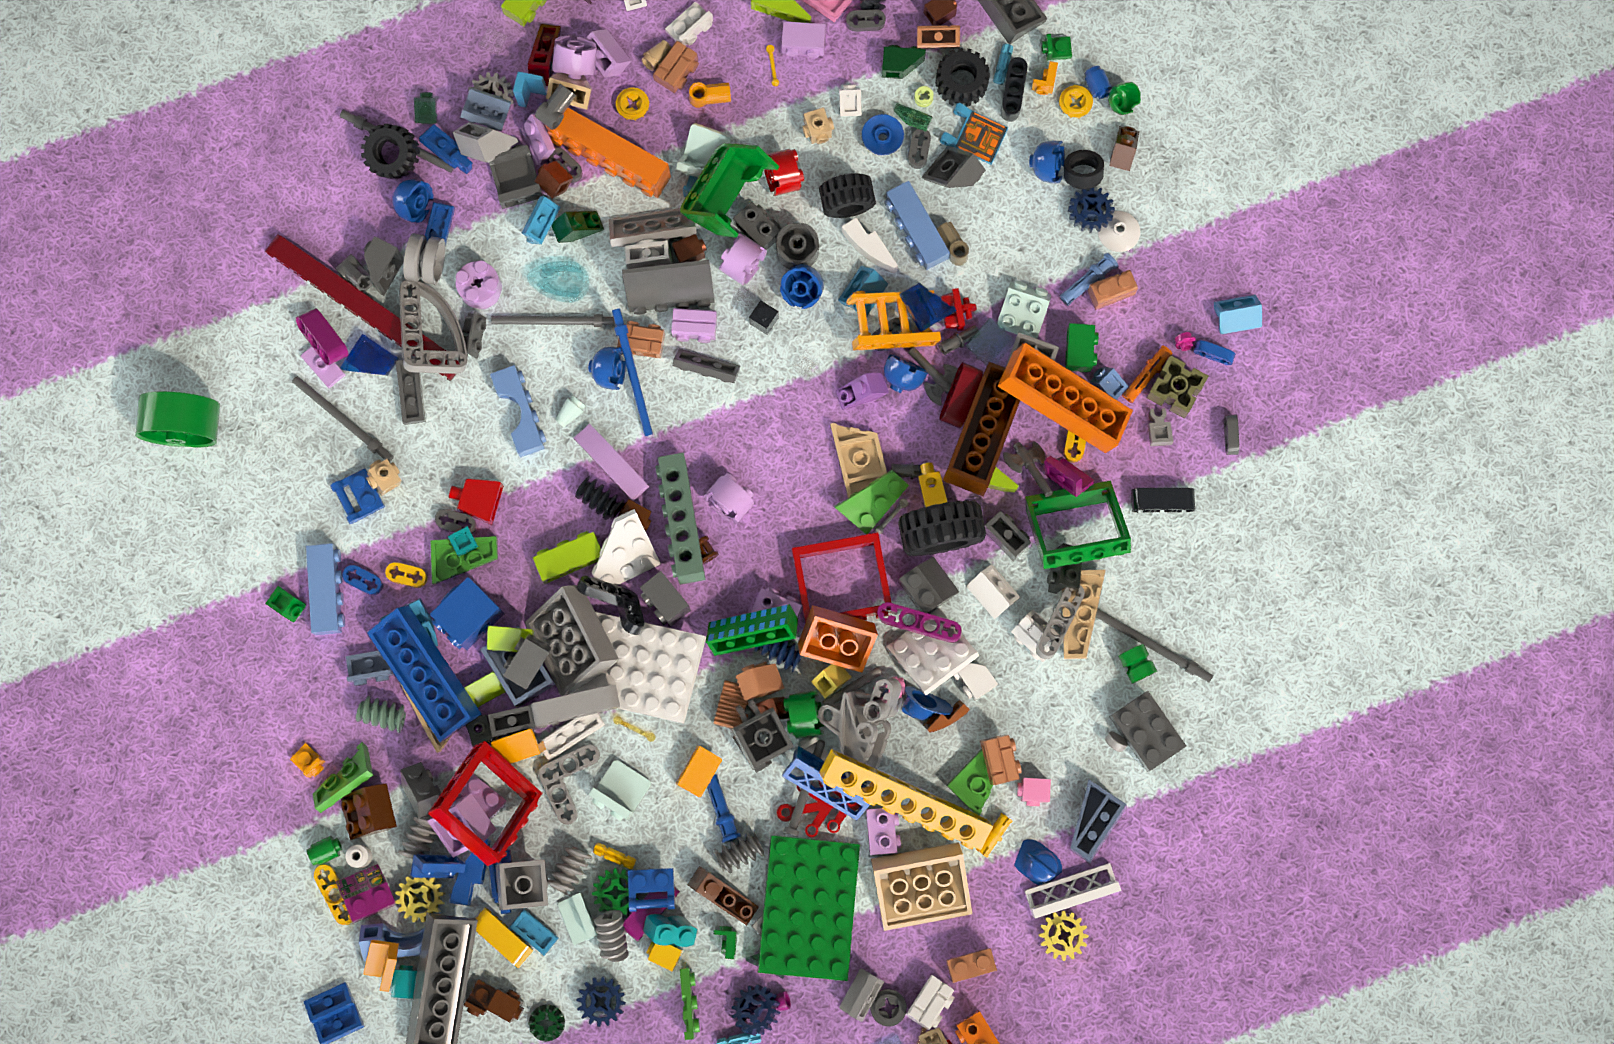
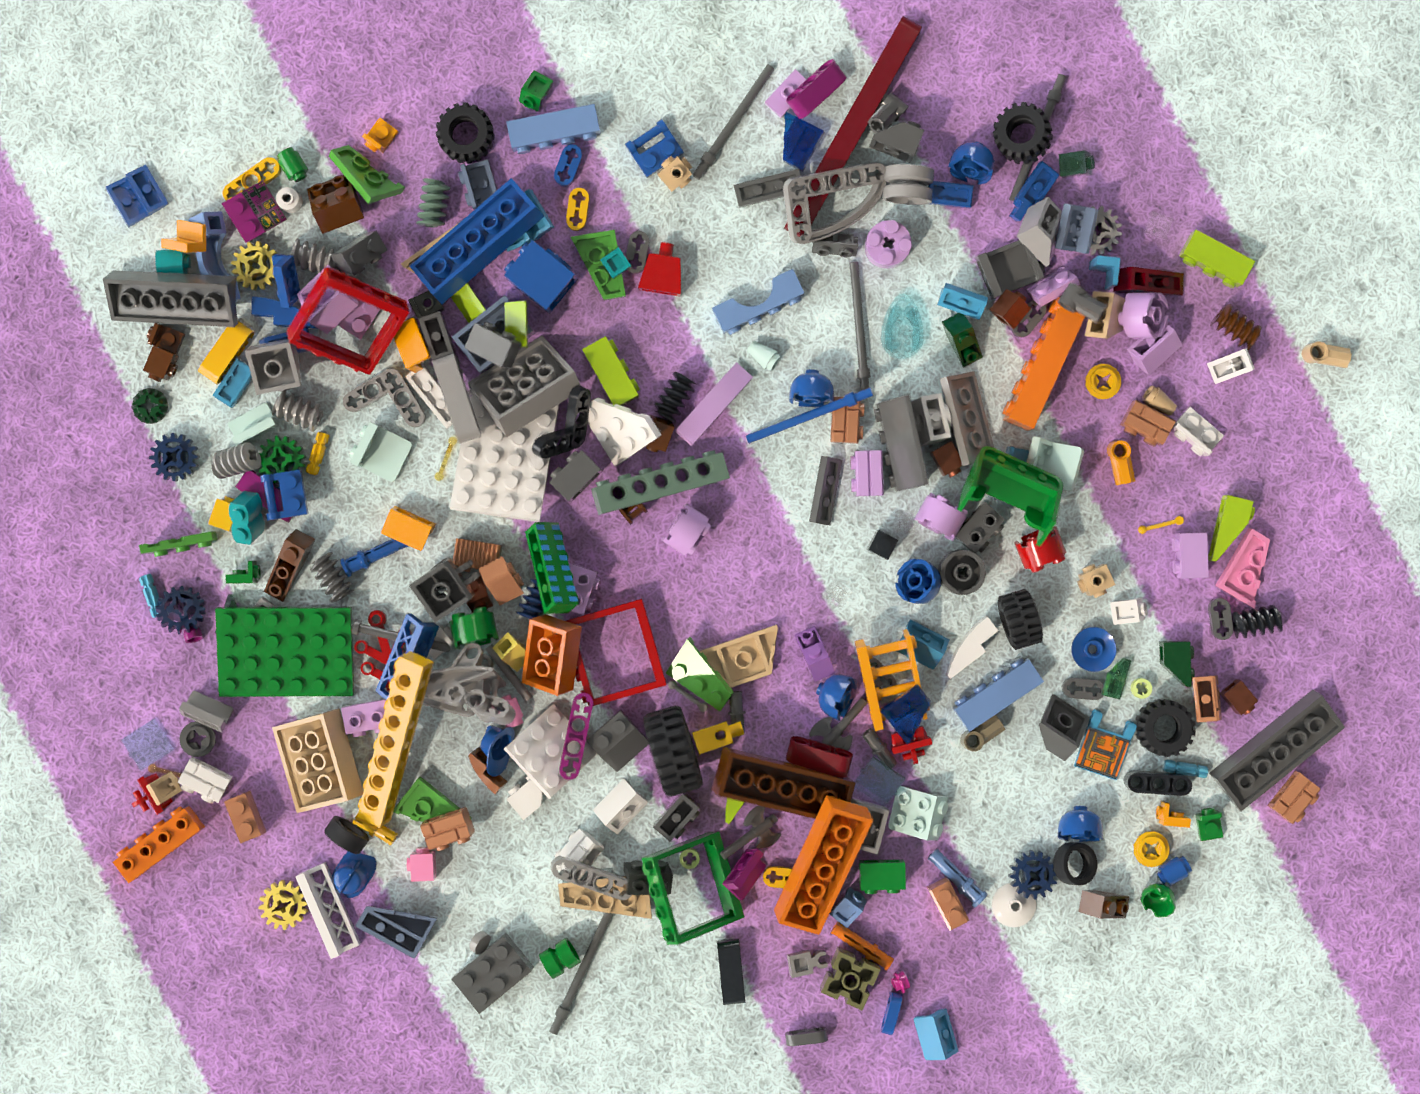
camera: 85 degrees right, 10 degrees up
(332, 685) = (461, 114): none -> black tyre
(998, 862) = (346, 835): none -> black tyre
(1055, 525) = (694, 863): none -> yellowish green bush

